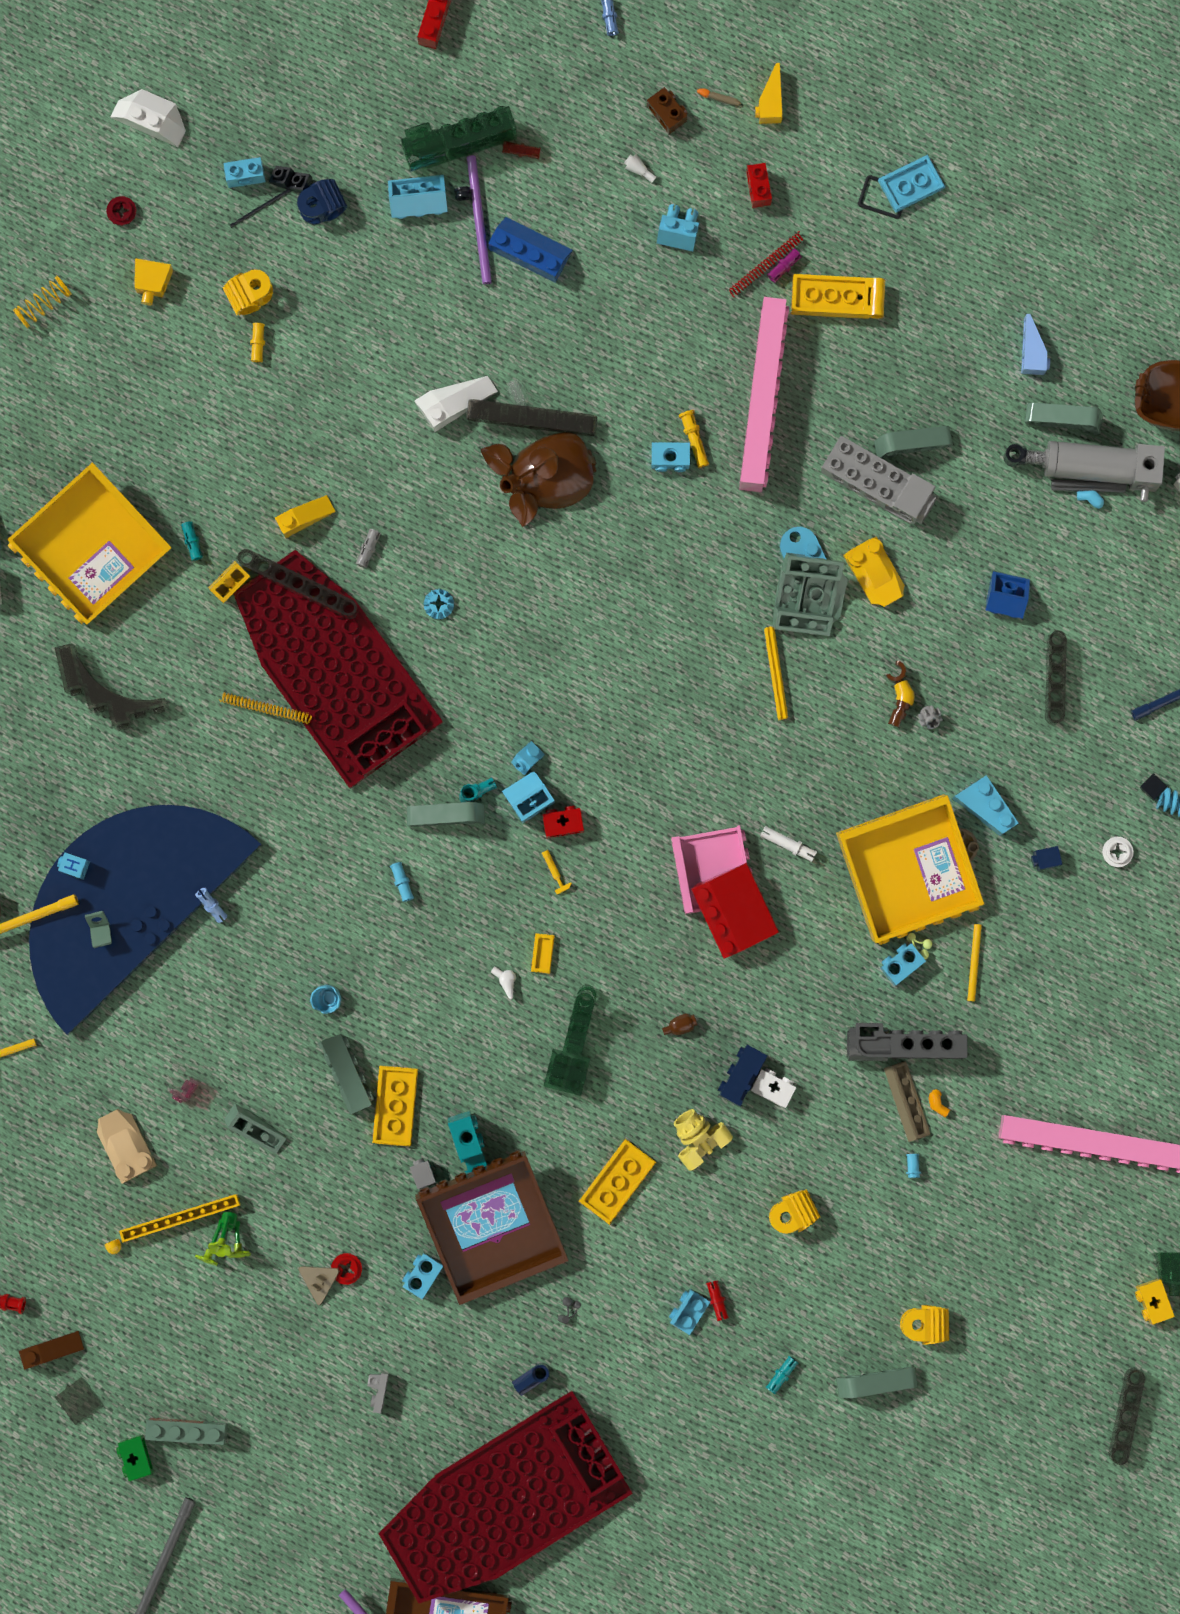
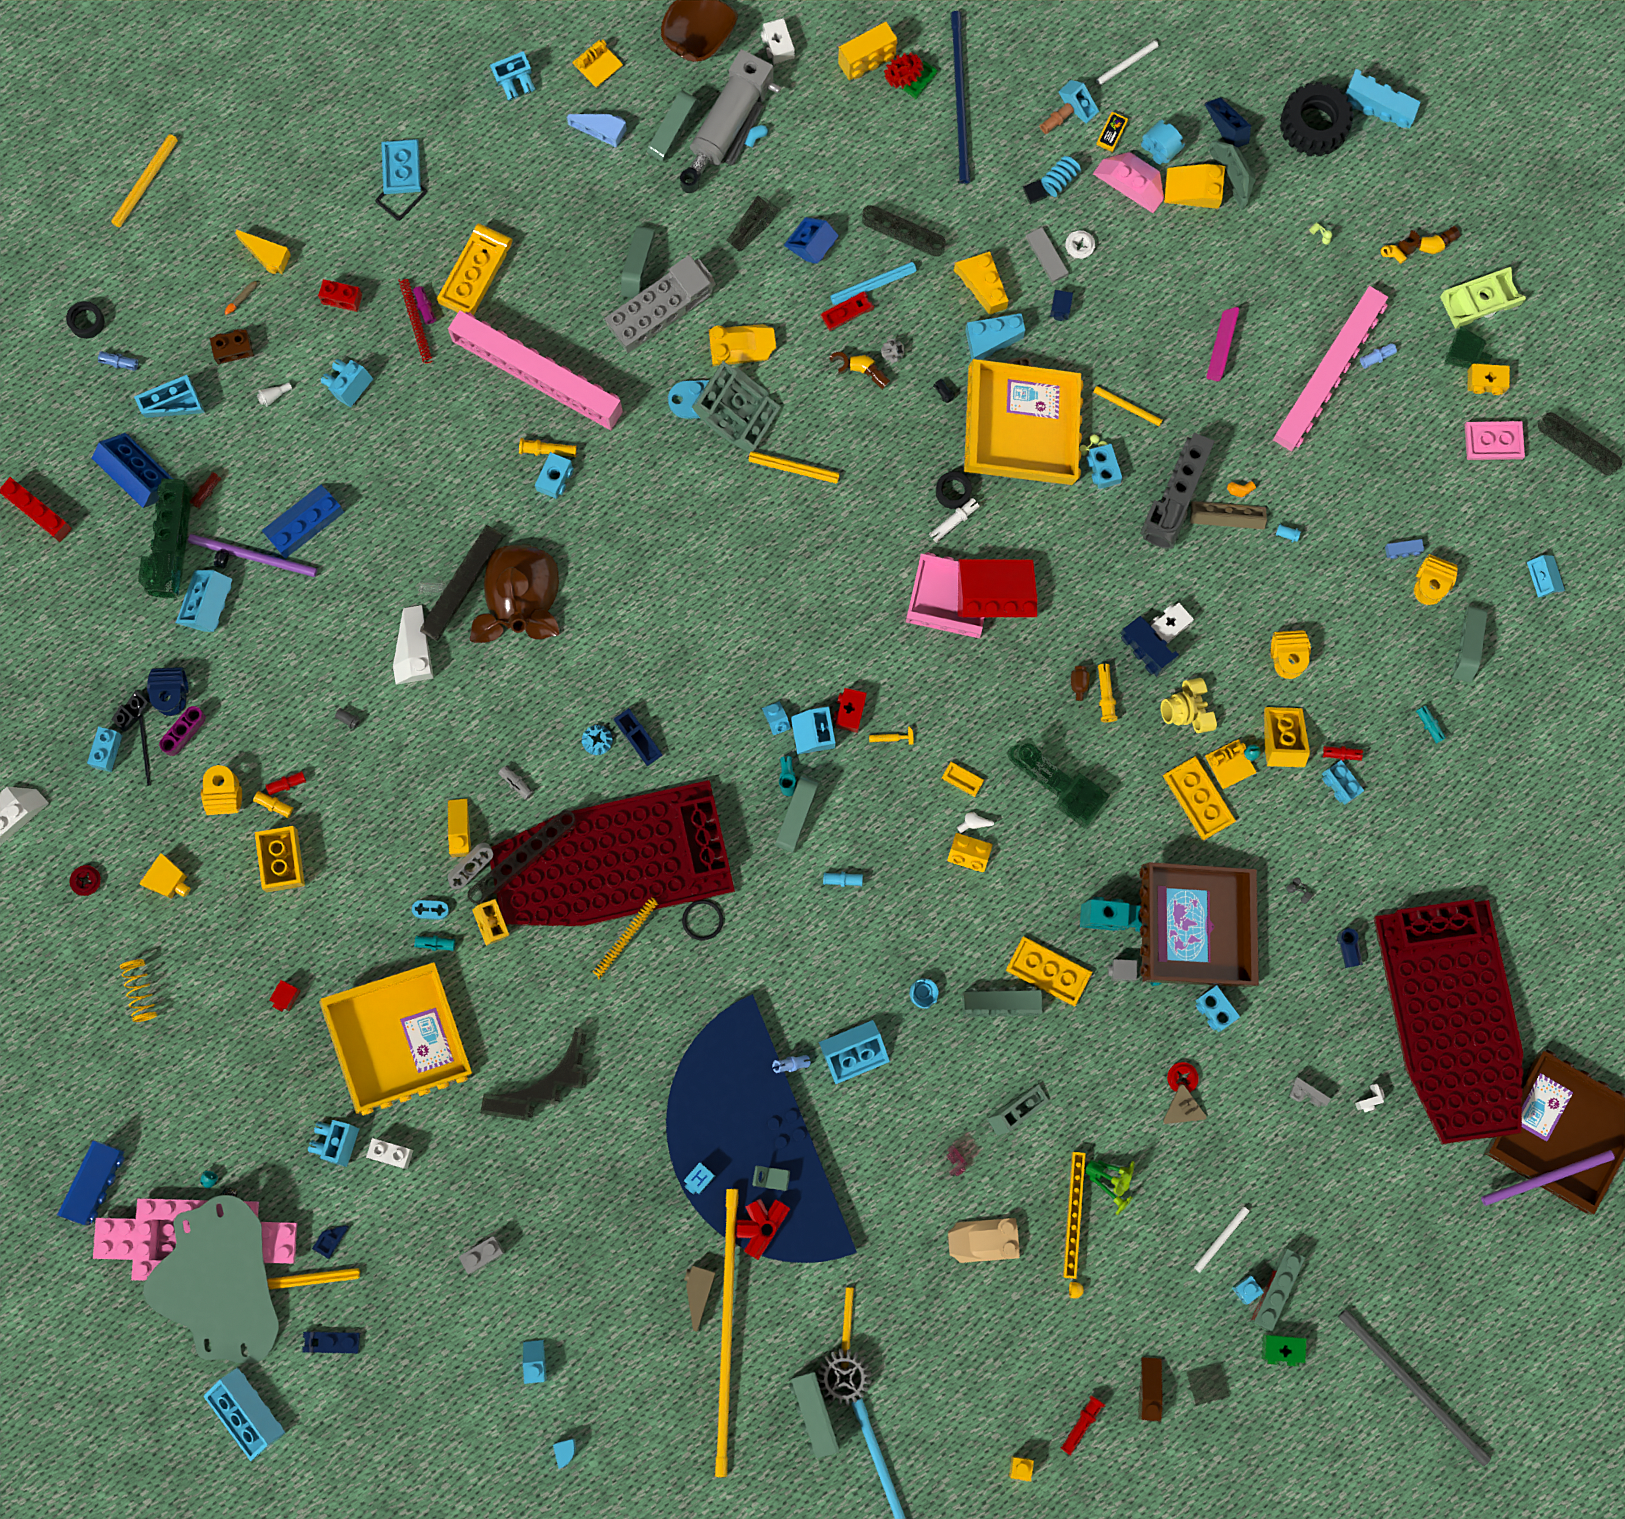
camera: 70 degrees left, 5 degrees down
(48, 932) = (760, 1217): none -> red piece
(89, 430) = (284, 996): none -> red brick
(175, 1403) = (1247, 1290): none -> medium azure brick
(209, 370) = (279, 859): none -> yellow brick
(213, 1362) = (1221, 1239): none -> white bar
(216, 526) = (430, 905): none -> medium azure beam
(246, 957) = (854, 1052): none -> medium azure slope
(262, 539) = (468, 874): none -> light grey beam
(281, 344) = (285, 783): none -> red pin
(283, 226) = (173, 733): none -> magenta beam
(317, 787) = (704, 937): none -> black tyre
(363, 372) = (351, 720): none -> dark grey pin
(392, 1451) = (1369, 1104): none -> white bracket
(456, 638) = (637, 736): none -> dark blue slope
(475, 988) = (969, 852): none -> yellow bracket
(513, 75) = (130, 468): none -> blue slope
(592, 79) = (170, 399): none -> medium azure wedge
(662, 1198) = (1230, 764): none -> yellow hinge
(672, 1058) = (1107, 701): none -> yellow pin
(679, 1217) = (1252, 755): none -> teal hinge
(710, 1240) = (1285, 737): none -> yellow slope
(817, 845) = (953, 504): none -> black tyre
(912, 782) = (946, 394): none -> black pin
(945, 1284) = (1404, 549): none -> medium blue piece
(951, 658) = (846, 311): none -> red plate
(978, 1432) = (1545, 575): none -> medium azure panel
(994, 674) = (873, 283): none -> medium azure axle
(1001, 533) = (753, 222): none -> clear smoke slope
(1038, 773) = (984, 281): none -> yellow wedge
(1048, 237) = (510, 69): none -> medium azure brick
(1076, 1029) = (1222, 344): none -> dark pink slope
(1093, 824) = (1047, 255): none -> light grey tile
(1094, 1331) = (1494, 440): none -> bright pink plate
(1097, 319) = (597, 63): none -> yellow hinge
(1132, 1184) = (1378, 355): none -> light blue axle

